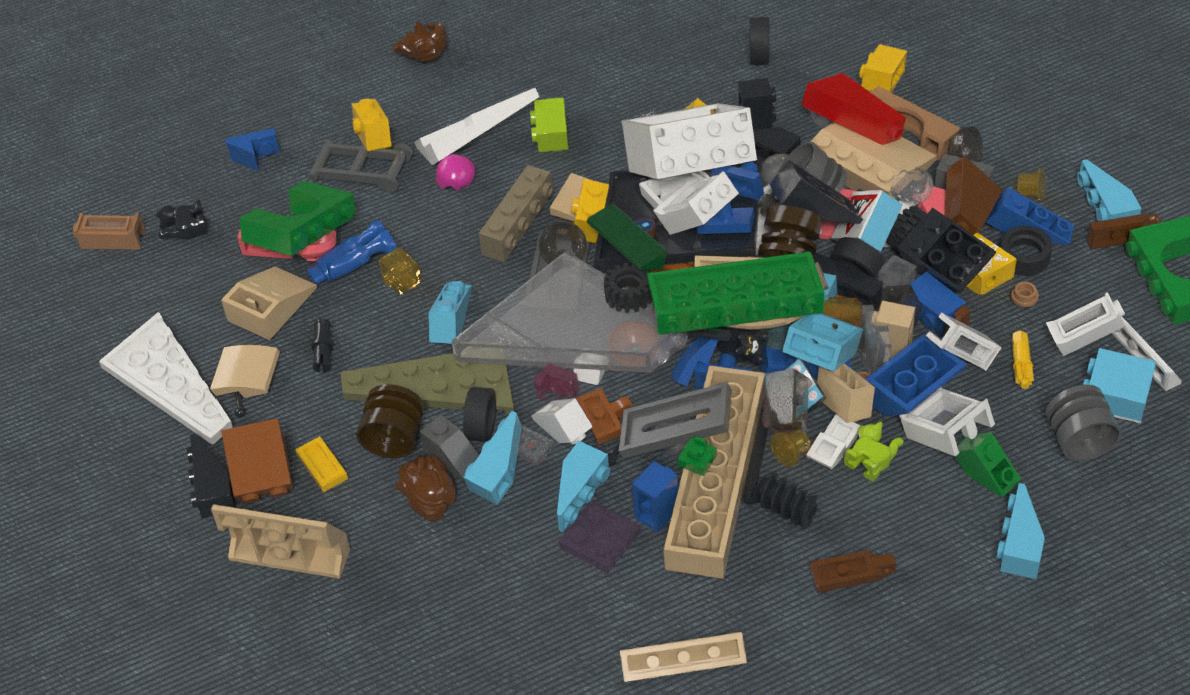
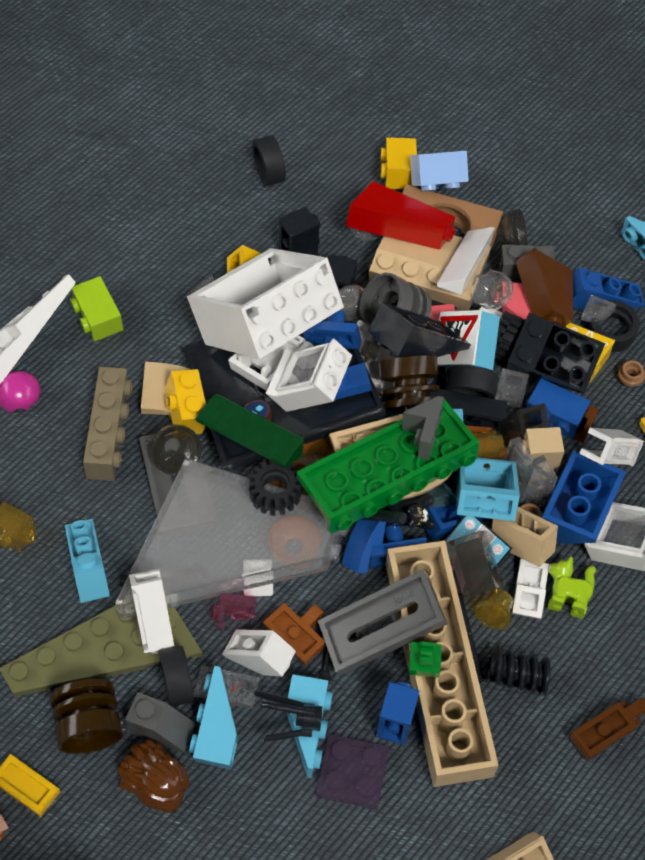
camera: 30 degrees left, 10 degrees up
(478, 352) = (151, 611): none -> white window
(571, 471) = (307, 715): none -> black plant
(778, 262) = (424, 421): none -> dark grey slope
(901, 157) = (466, 260): none -> white slope
(913, 77) = (439, 170): none -> light blue brick
(1012, 228) = (598, 309): none -> clear tile
(1032, 184) = (588, 253): clear yellow piece -> none

